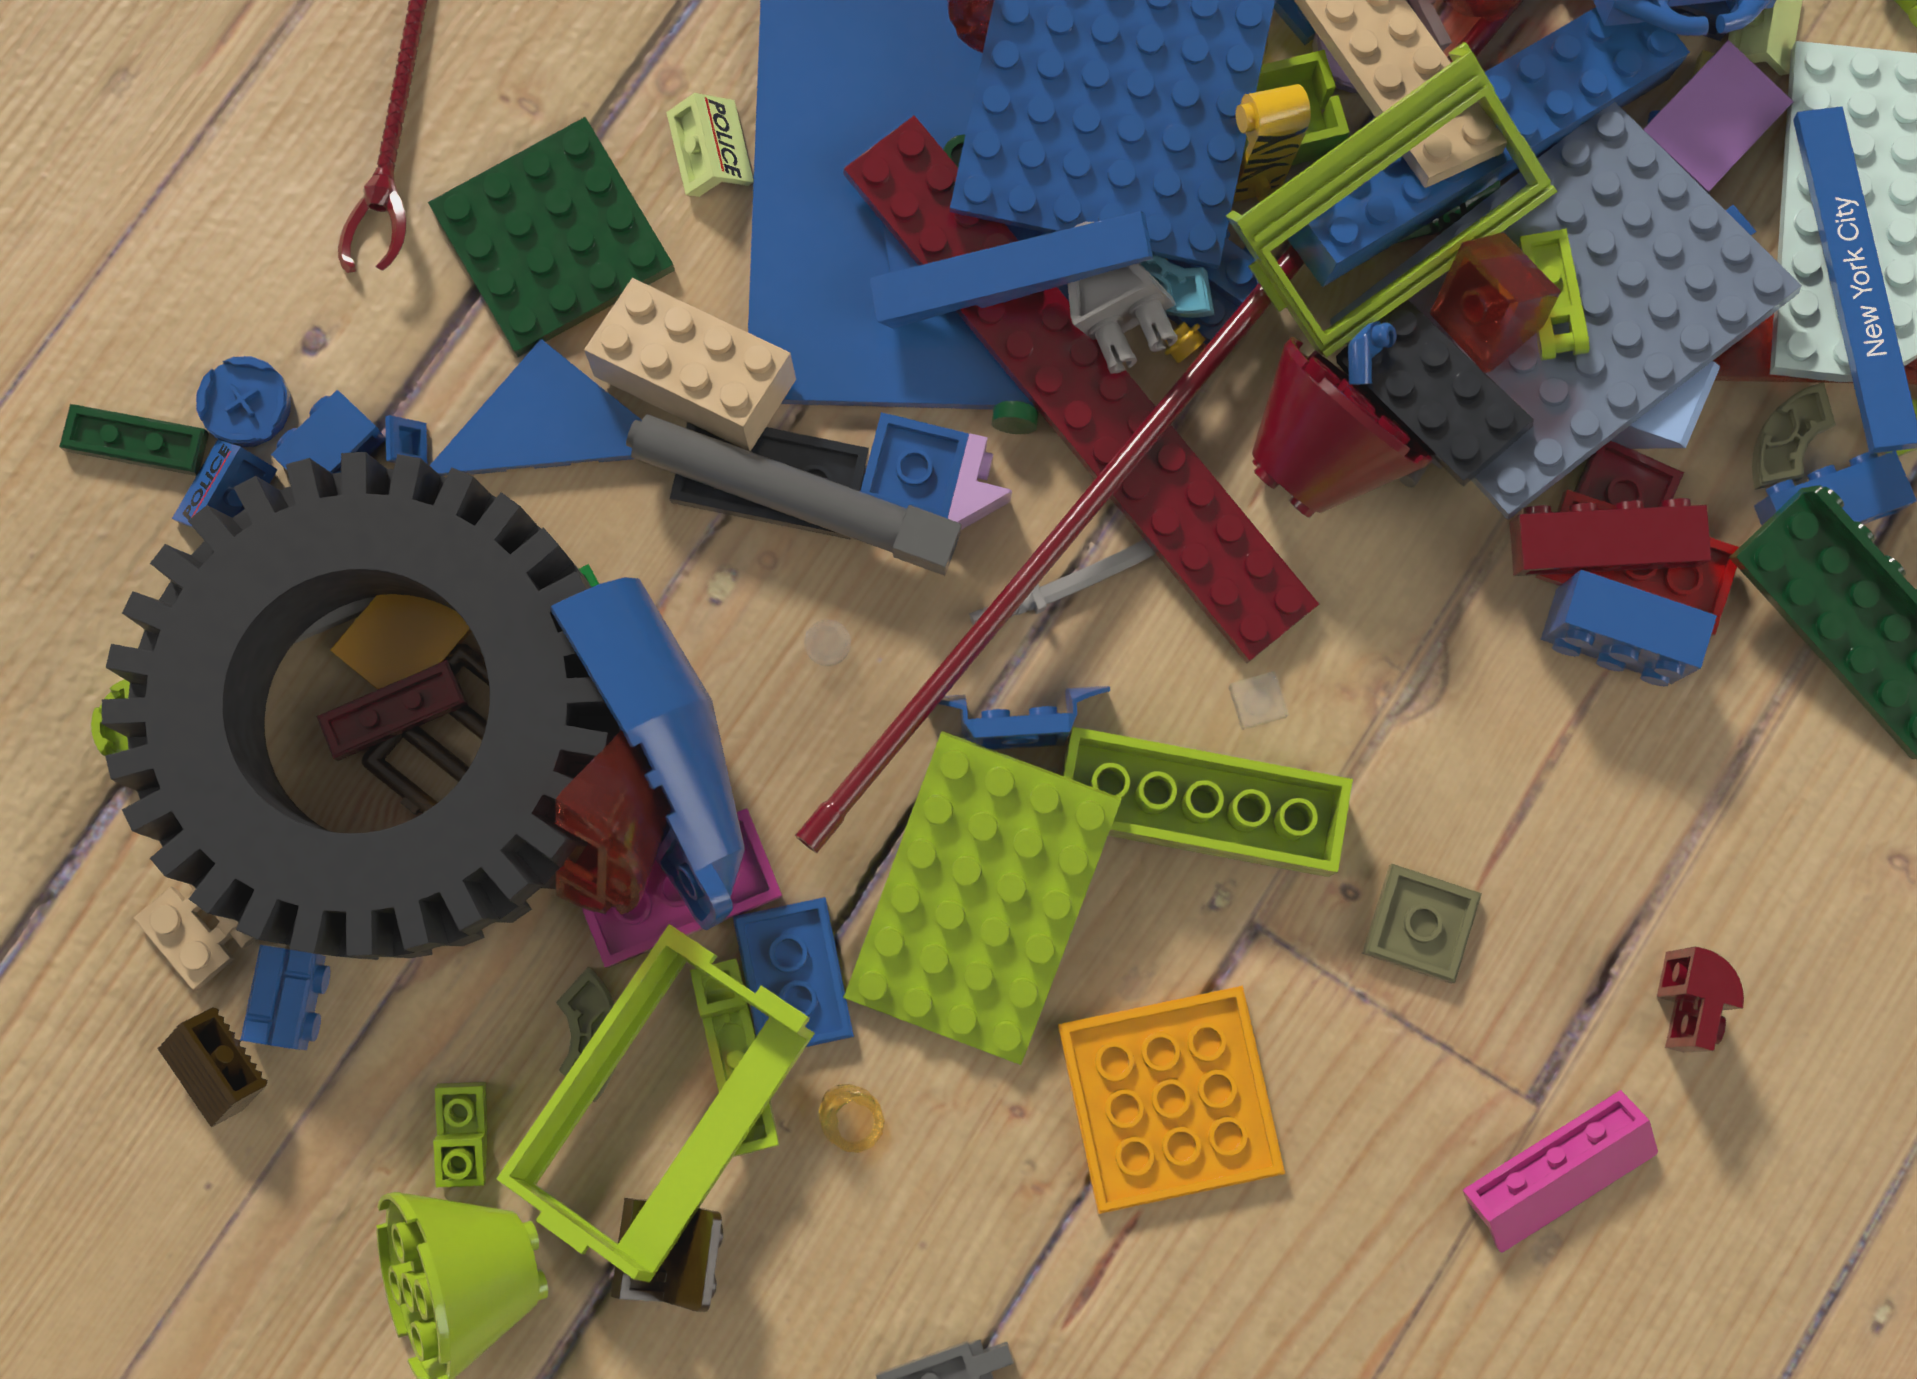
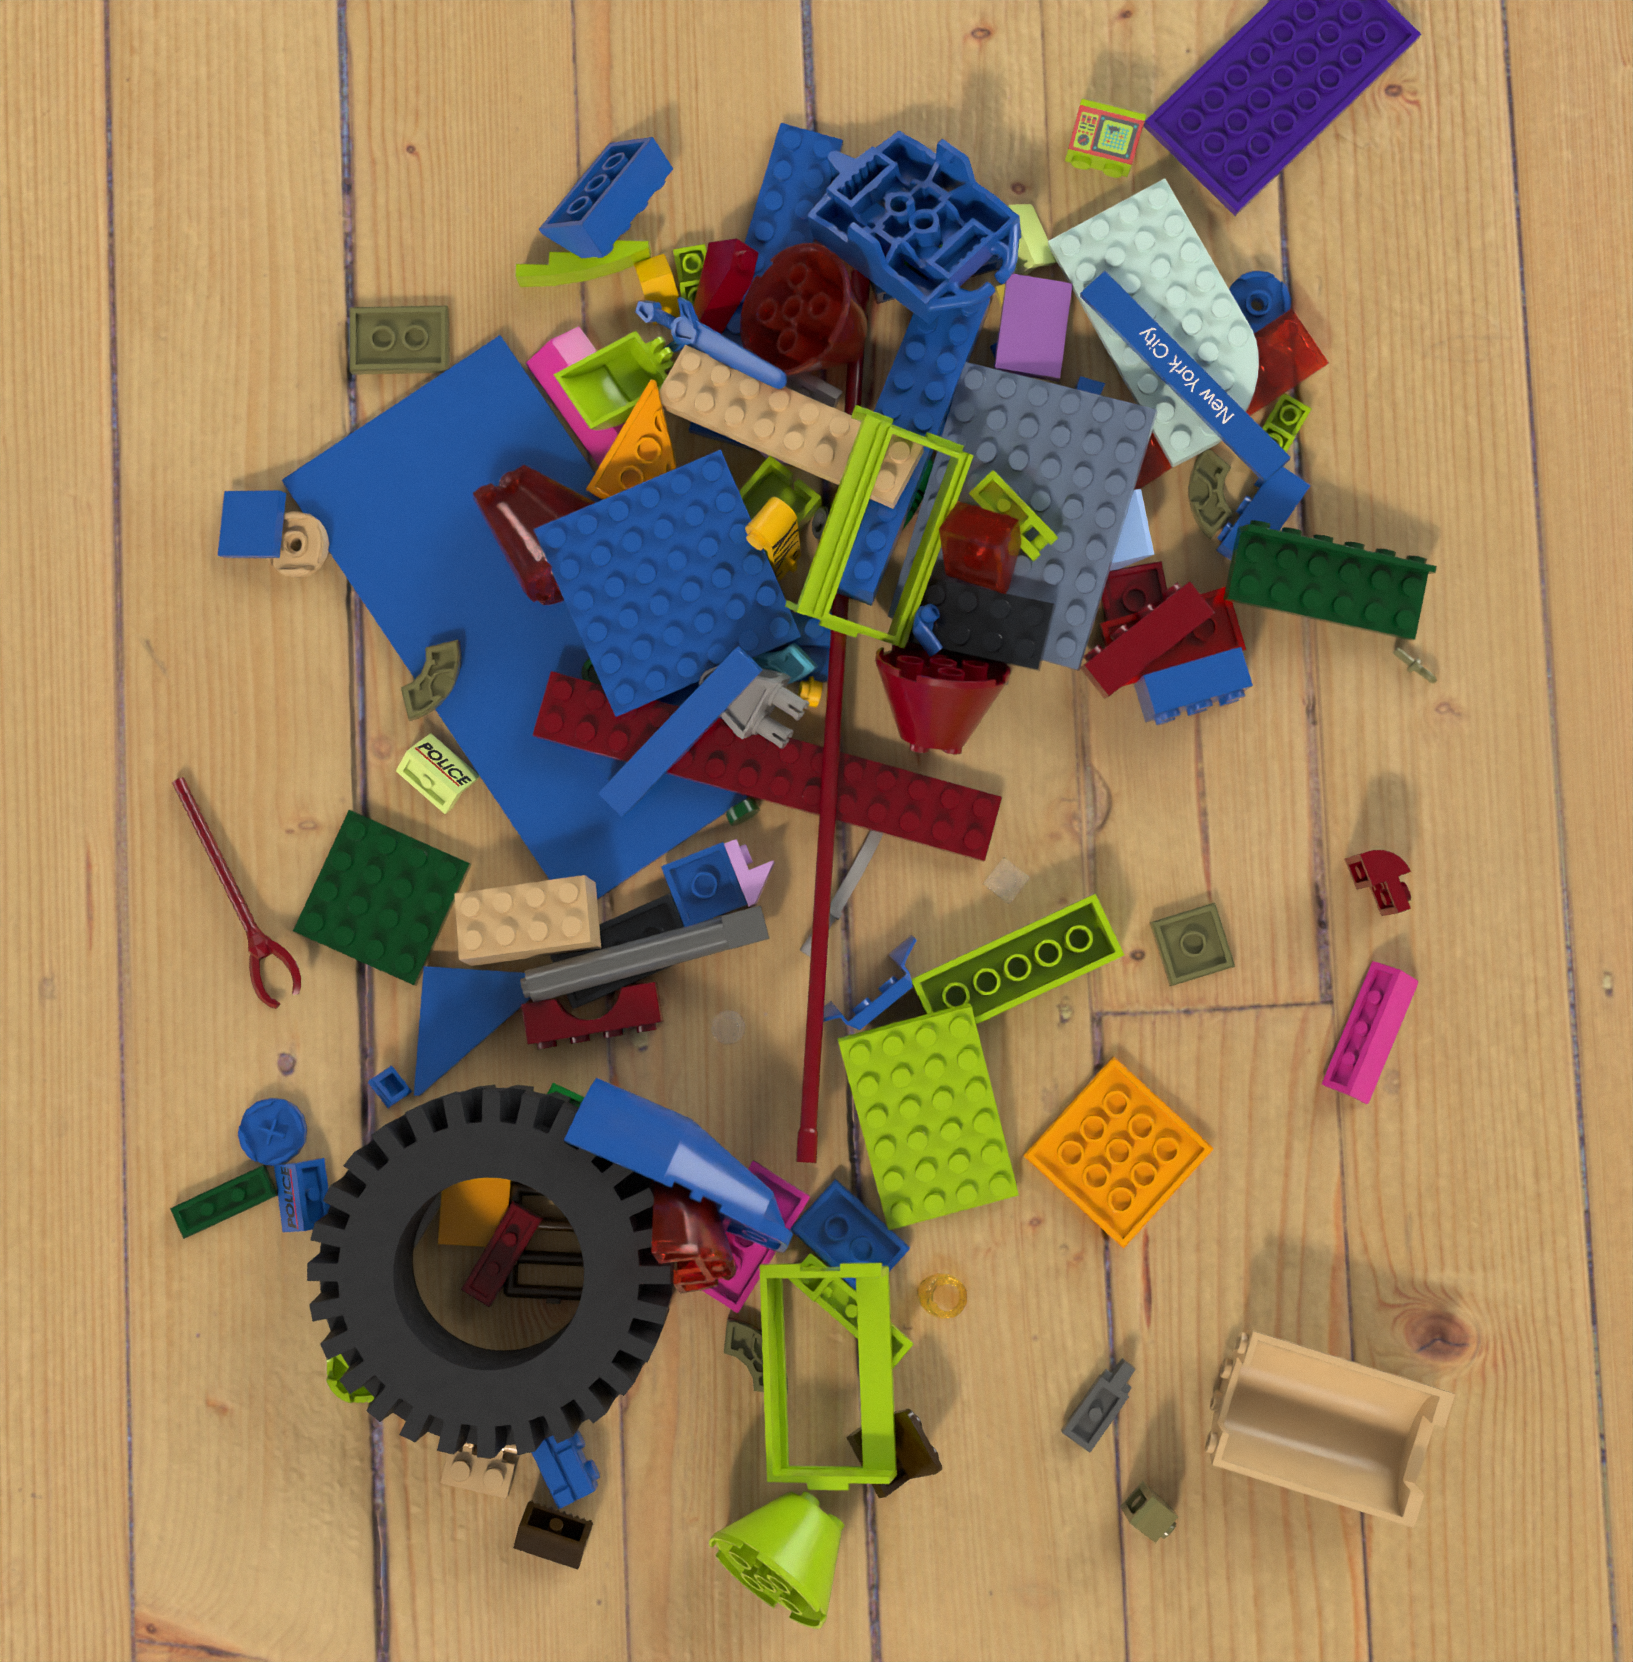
camera: 25 degrees left, 5 degrees up
(331, 429) = (343, 1122): blue brick -> none
(461, 1134) = (724, 1468): lime slope -> none
(740, 546) = (549, 1020): none -> dark red arch
(780, 44) = (434, 681): none -> olive tile
(1899, 790) = (1414, 665): none -> olive hand

